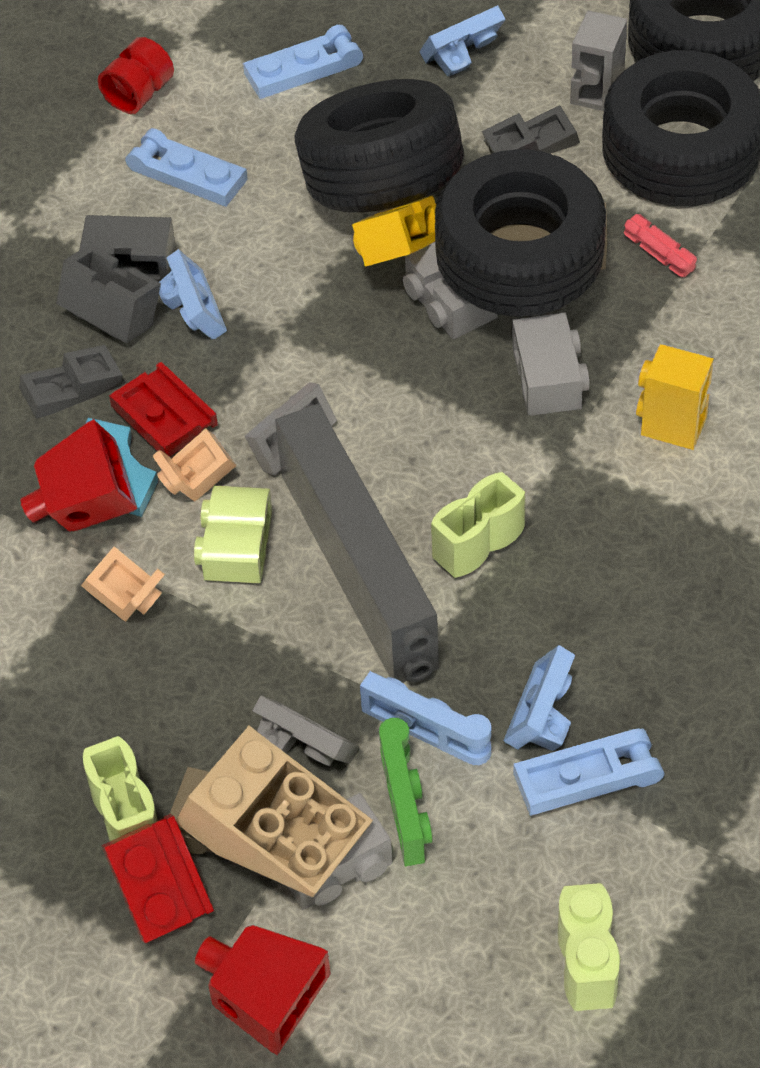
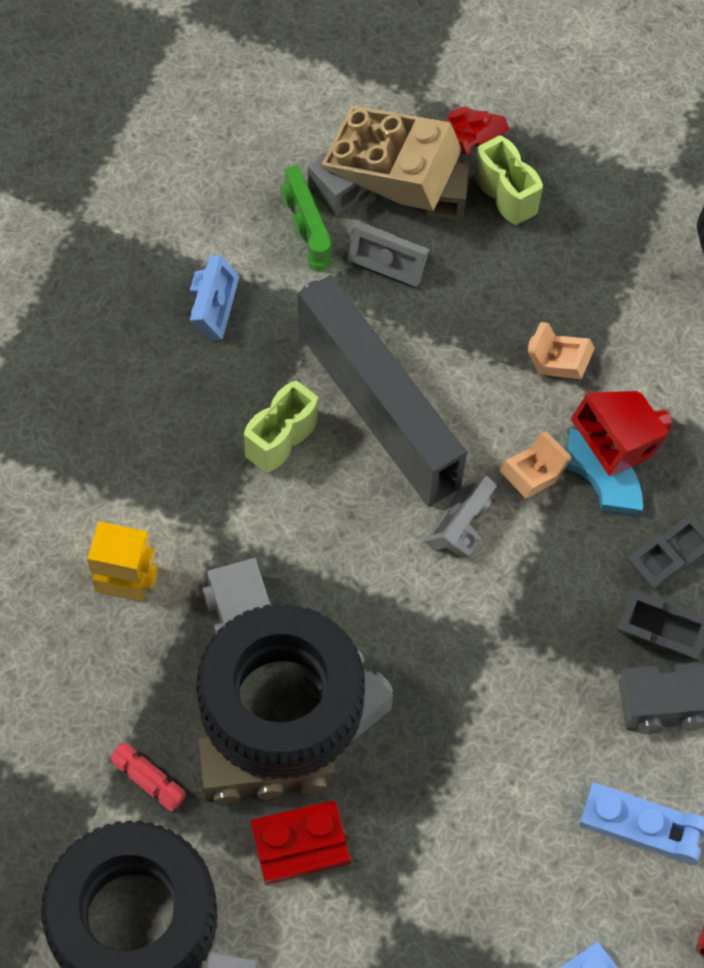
camera: 165 degrees right, 10 degrees up
(163, 409) = (579, 525): red plate -> none
(189, 286) = (585, 649): light blue hinge -> none
(234, 534) = (483, 409): yellowish green brick -> none
(264, 981) = (378, 82): red torso -> none
(379, 145) = (499, 822): black tyre -> none
(395, 231) = (402, 718): yellow brick -> none
(428, 719) = (290, 268): light blue plate -> none
(545, 133) = (293, 912): dark grey slope -> none
(587, 771) = (172, 253): light blue plate -> none
(588, 947) = (161, 126): yellowish green brick -> none

